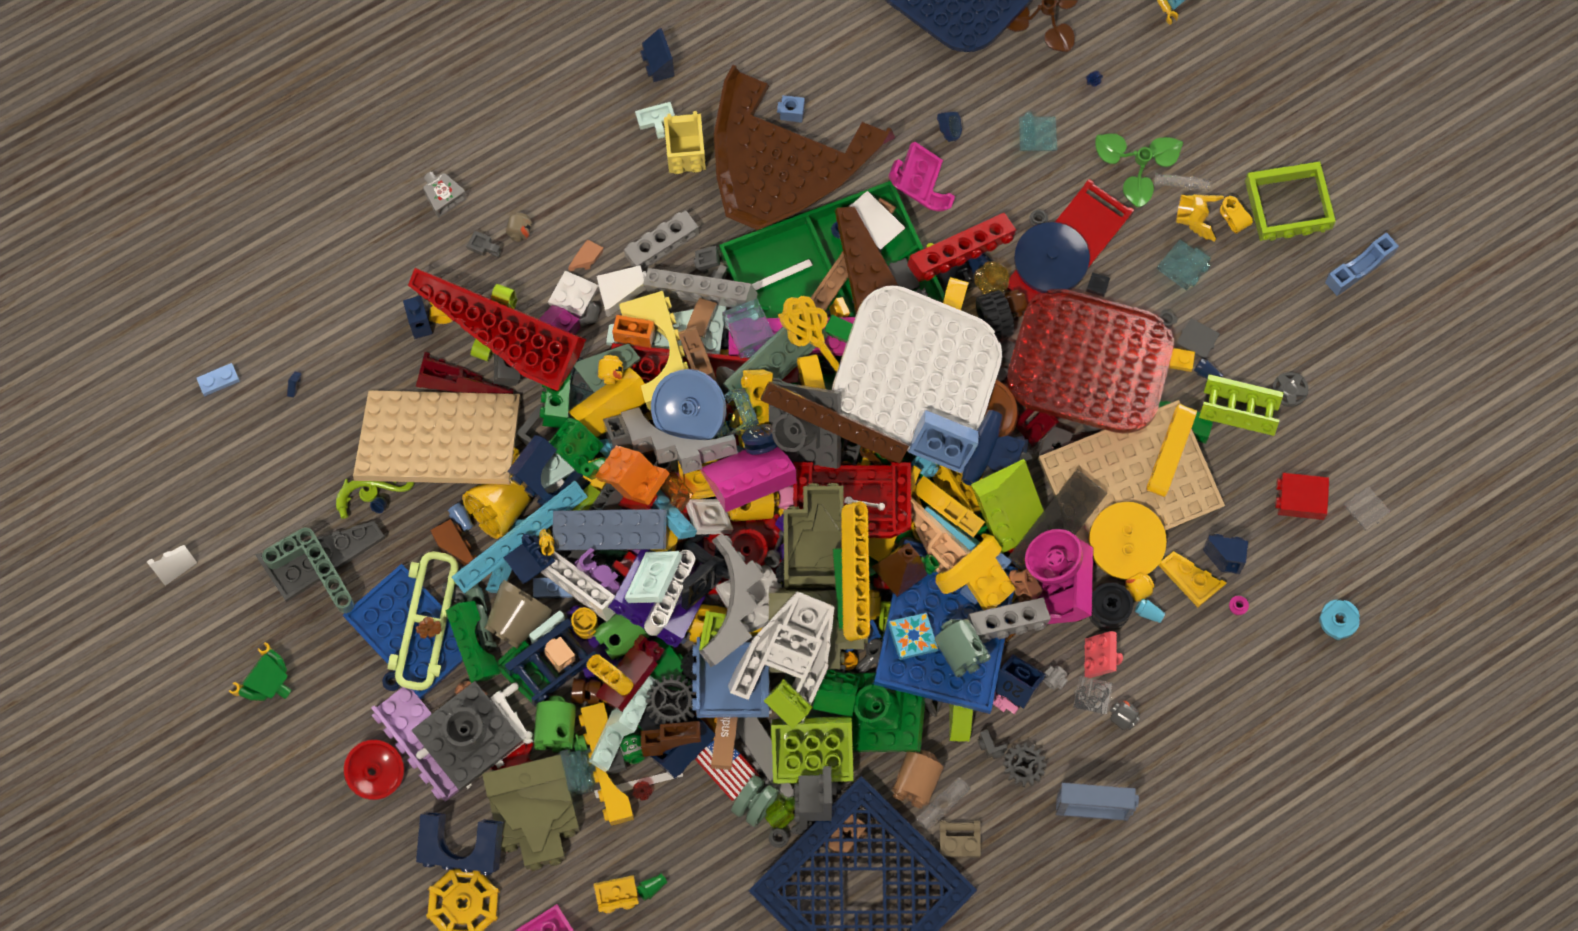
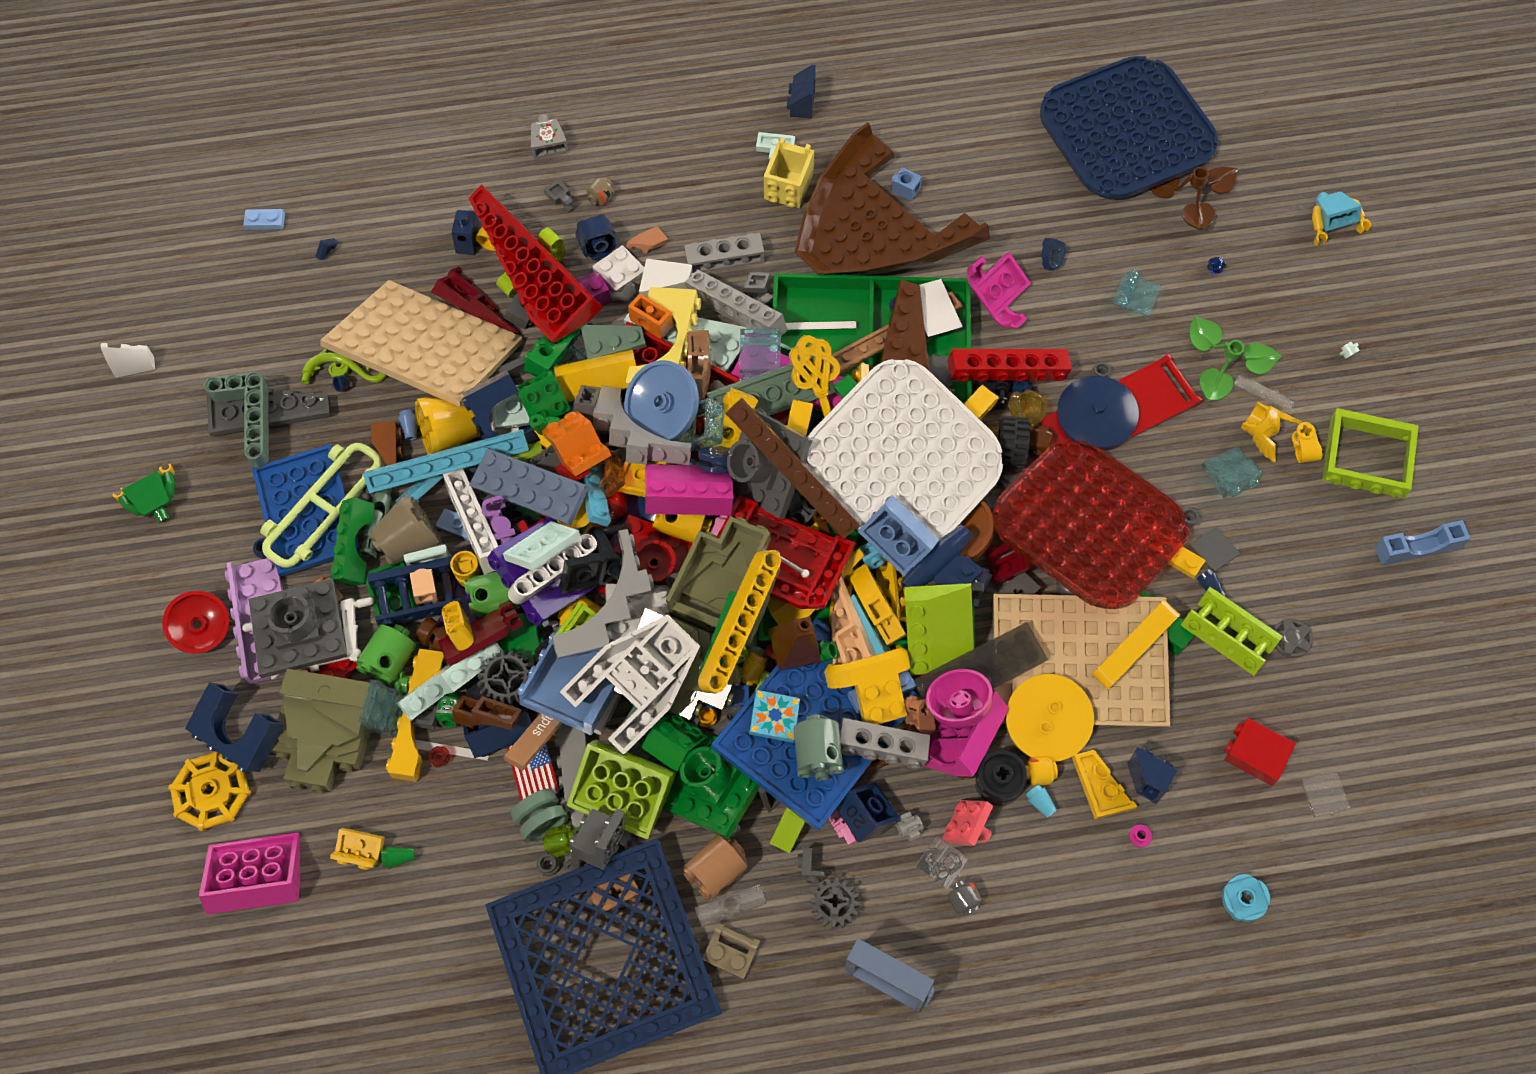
camera: 25 degrees right, 5 degrees down
(428, 627) = (317, 510): dark orange plant -> none
(528, 559) = (443, 483): dark blue hinge -> none
(540, 273) = (596, 237): none -> dark blue brick
(546, 542) = (465, 475): yellow pin -> none
(610, 369) = (610, 341): yellow head -> none
(702, 315) = (724, 328): medium nougat slope -> none
(708, 516) = (629, 514): white plate -> none
(788, 704) = (613, 728): lime hinge -> none
(1098, 284) = (1133, 456): black plate -> none
(1236, 113) = (1349, 350): none -> light aqua plate

